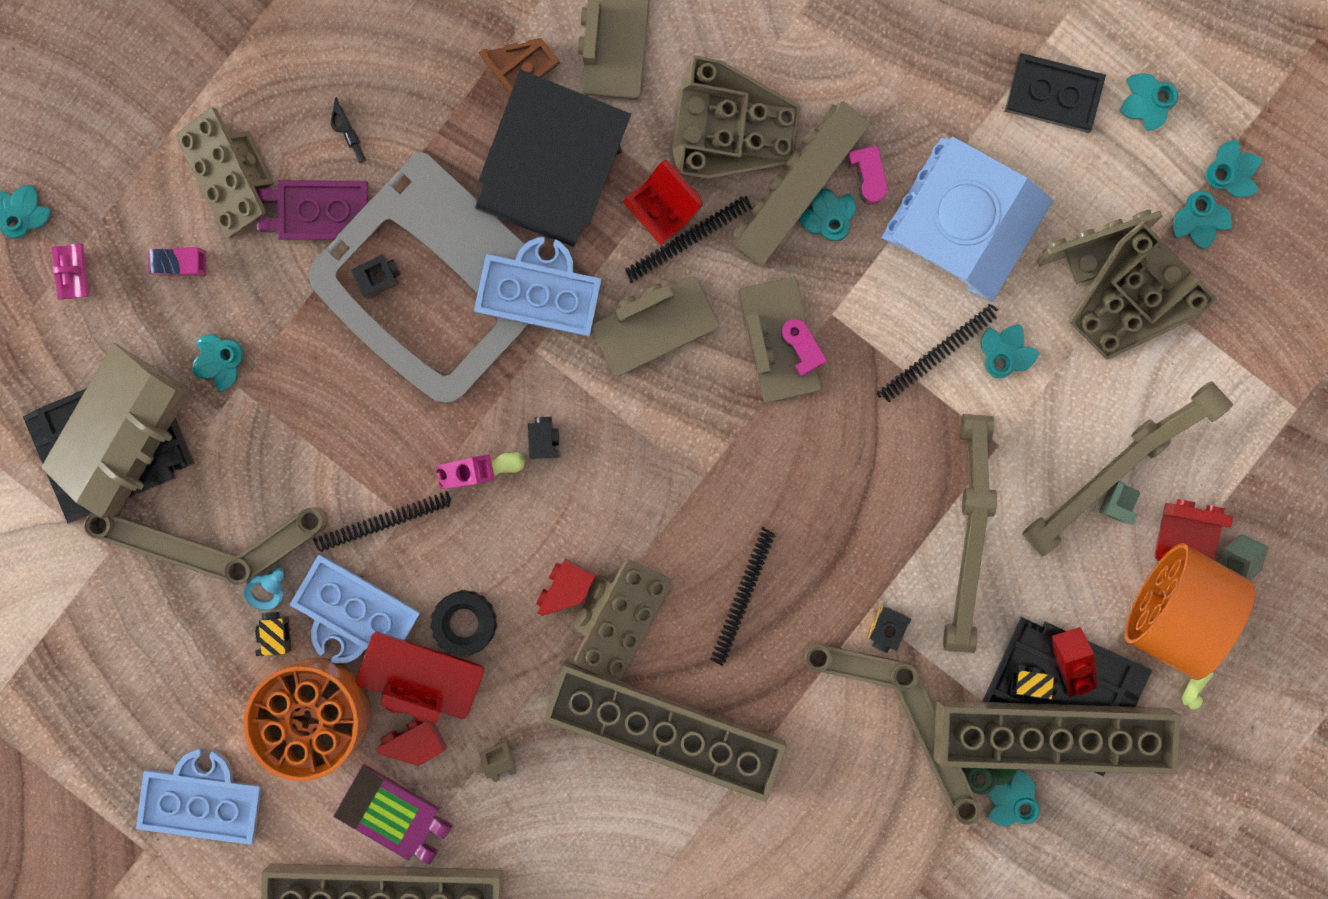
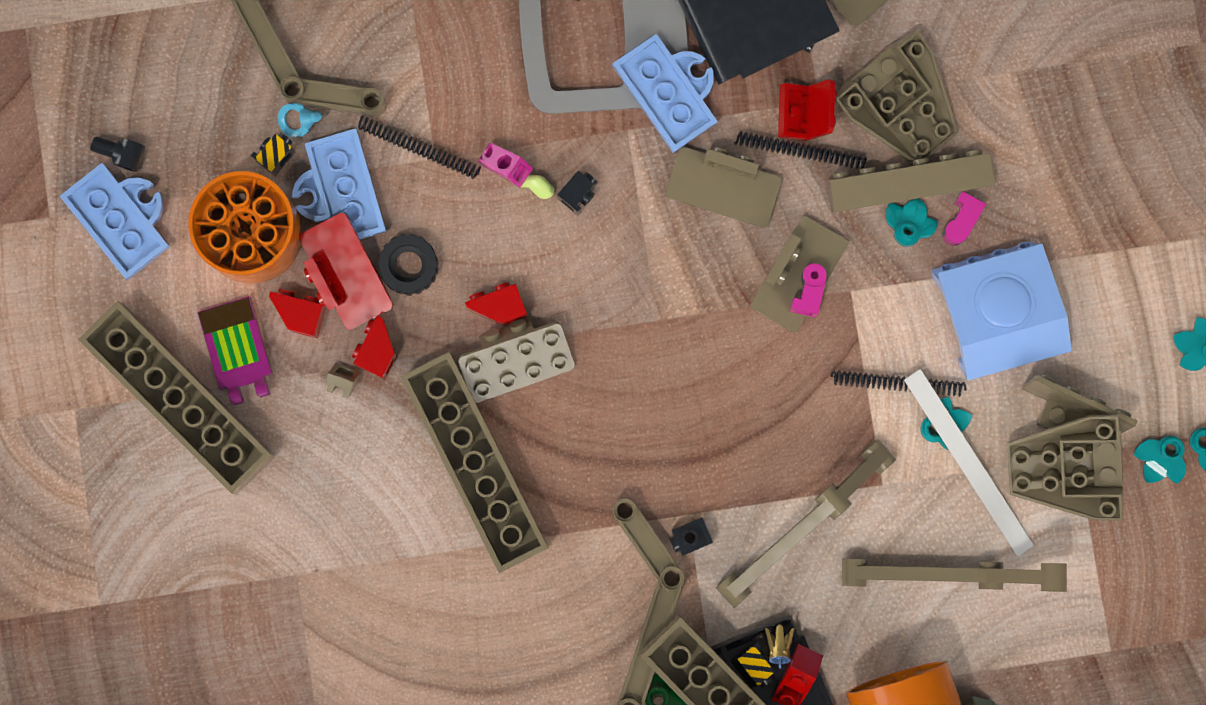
camera: 45 degrees right, 5 degrees down
(152, 747) = (124, 153): none -> black axle
(504, 714) = (377, 351): none -> red slope
(753, 574) = (617, 418): black piece -> none
(1038, 651) = (779, 646): none -> pearl gold piece
(1051, 365) = (968, 462): none -> white sticker
(1055, 93) = (1140, 282): black tile -> none
(1120, 503) = (929, 600): sand green panel -> none
(1192, 527) = (965, 661): red bracket -> none

